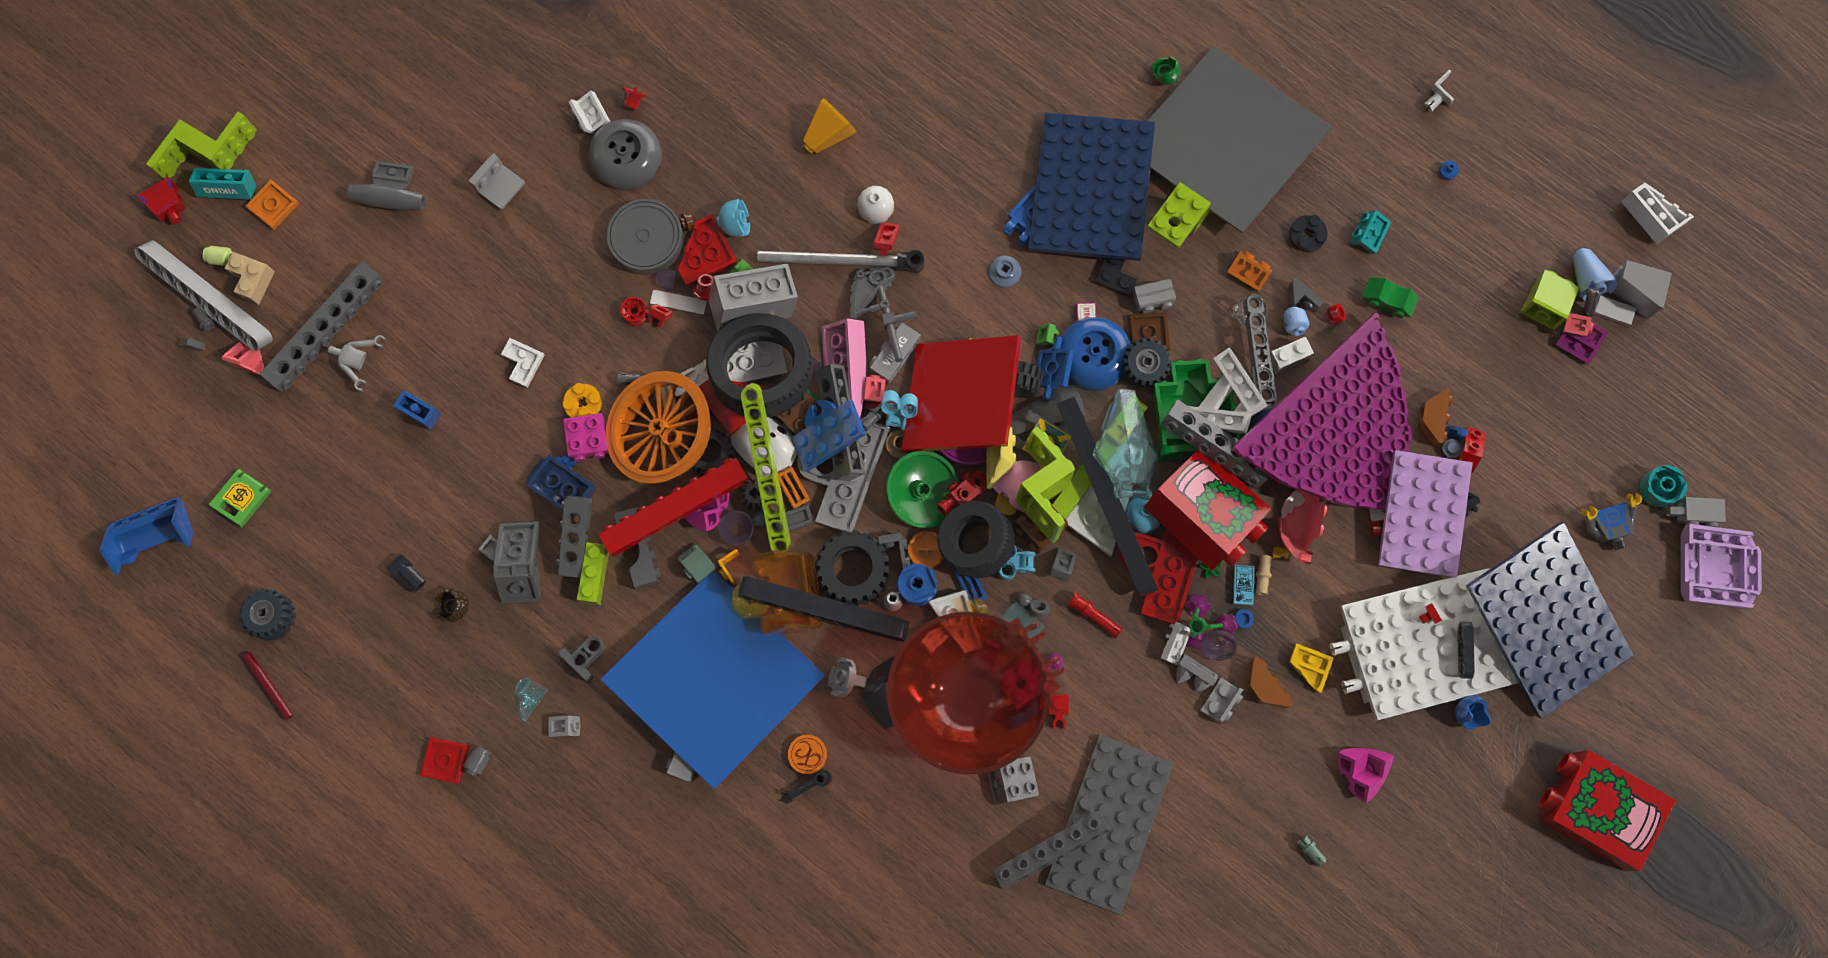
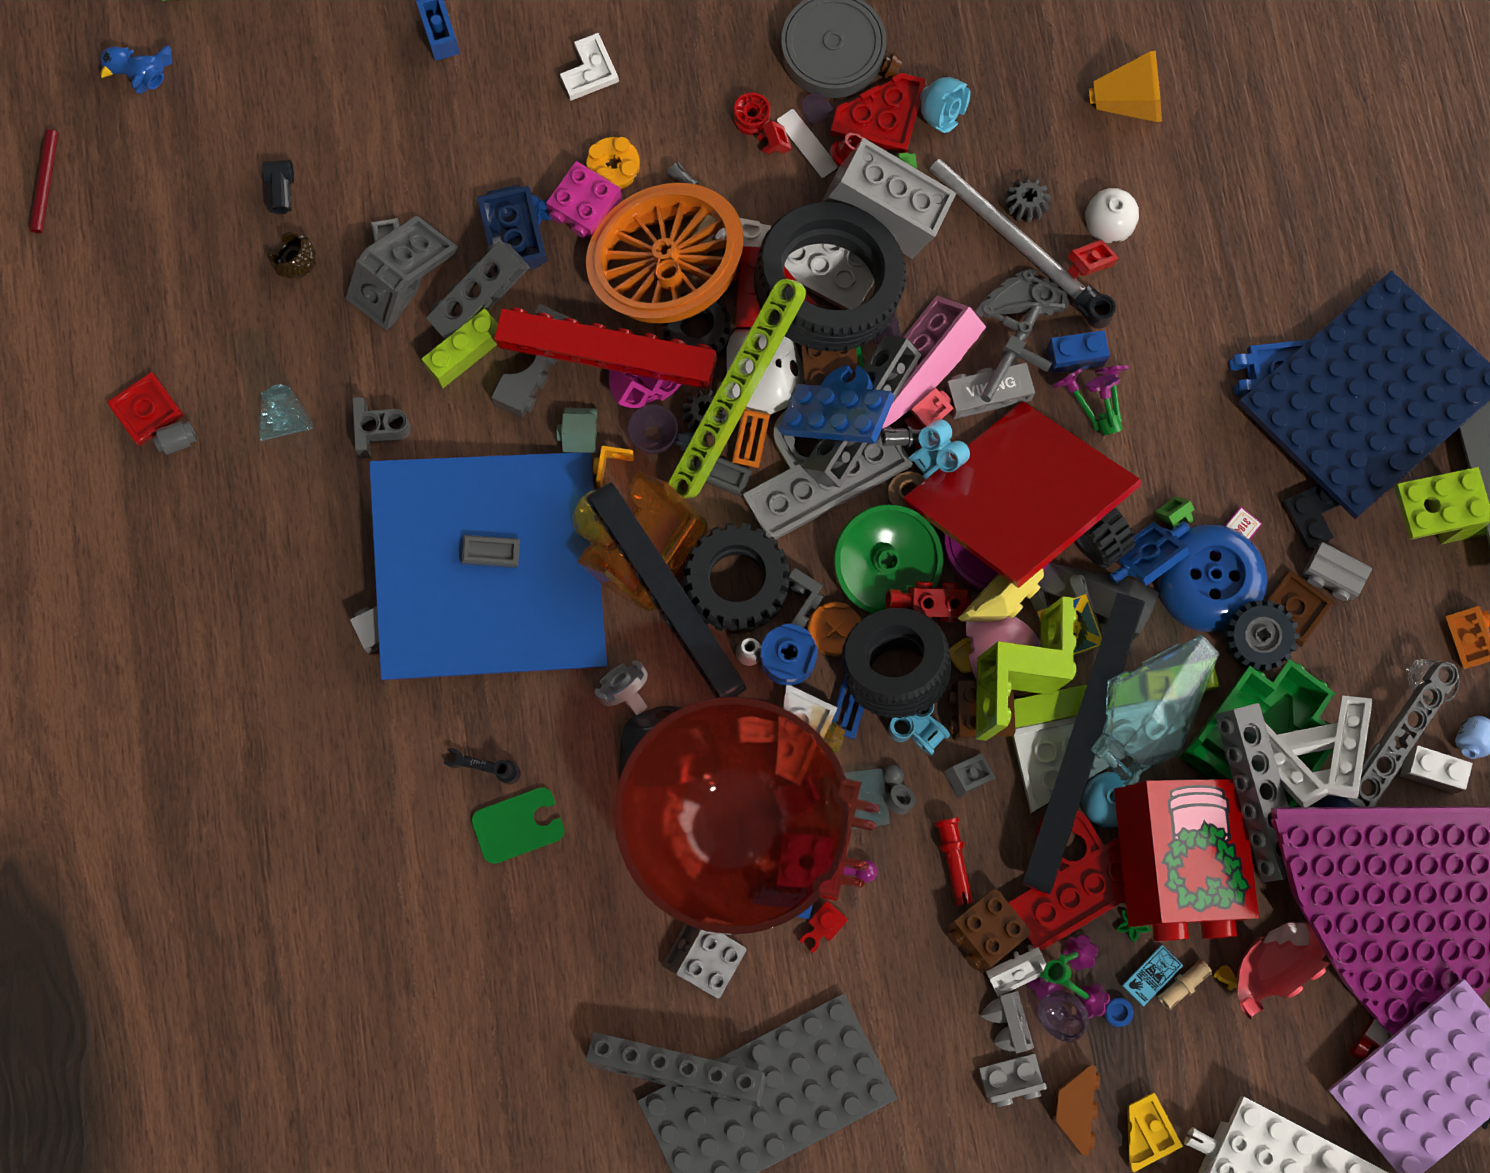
camera: 40 degrees right, 0 degrees up
(267, 576) = (141, 69): none -> blue animal
(267, 614) = (106, 108): black wheel -> none
(564, 726) = (293, 480): light grey bracket -> none
(709, 669) = (490, 551): none -> dark grey tile
(807, 754) = (513, 732): orange tile -> none
(824, 227) = (1027, 190): none -> dark grey gear
(852, 806) = (510, 826): none -> green piece
(922, 293) = (1078, 351): none -> blue brick
(970, 315) = (1110, 420): none -> plant
(1001, 278) = (1180, 409): sand blue piece -> none
(1143, 636) = (987, 931): none -> reddish brown bracket

